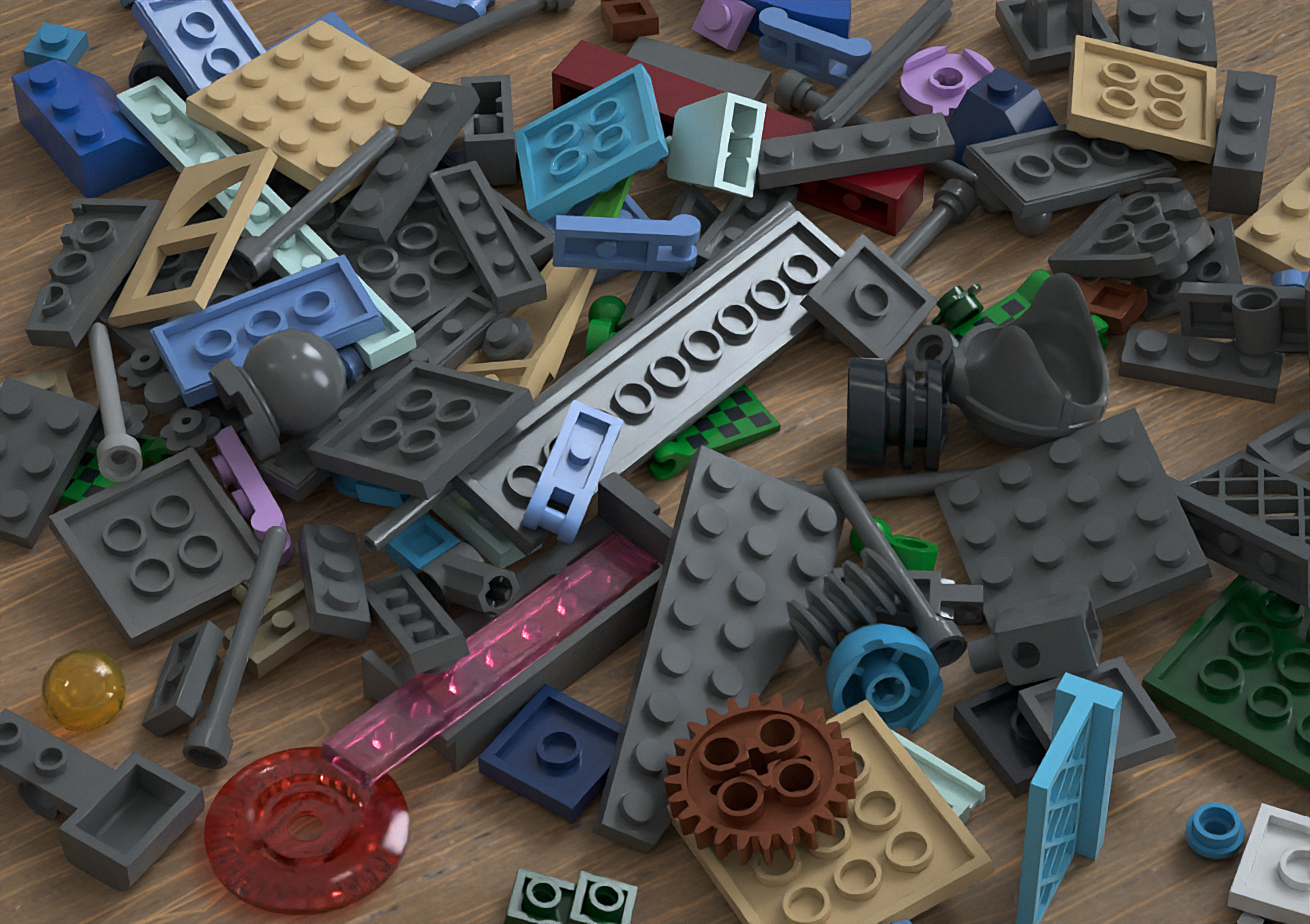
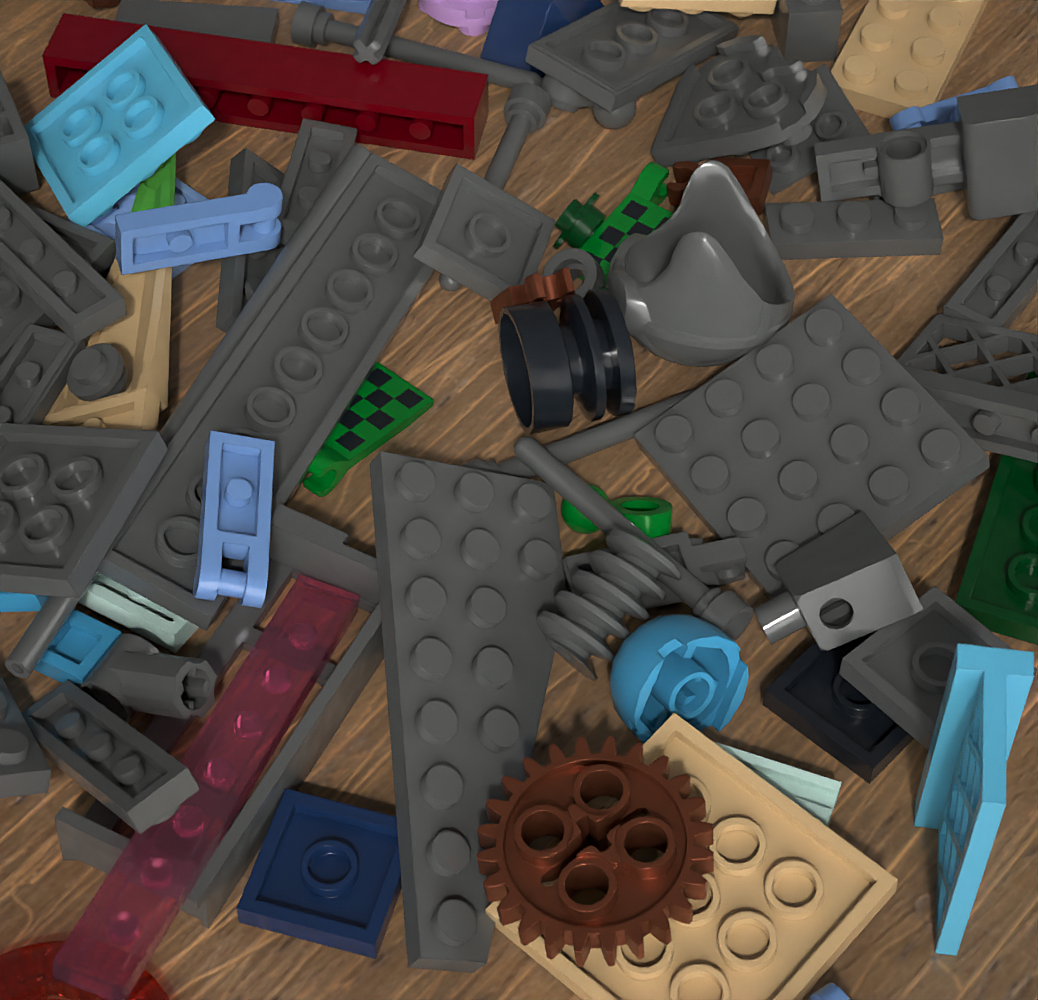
camera: 20 degrees left, 5 degrees up
(604, 320) = (197, 322): green plate -> none
(717, 144) = (261, 97): light aqua torso -> none
(854, 150) = (405, 75): dark grey plate -> none
(893, 353) = (547, 288): none -> copper plate

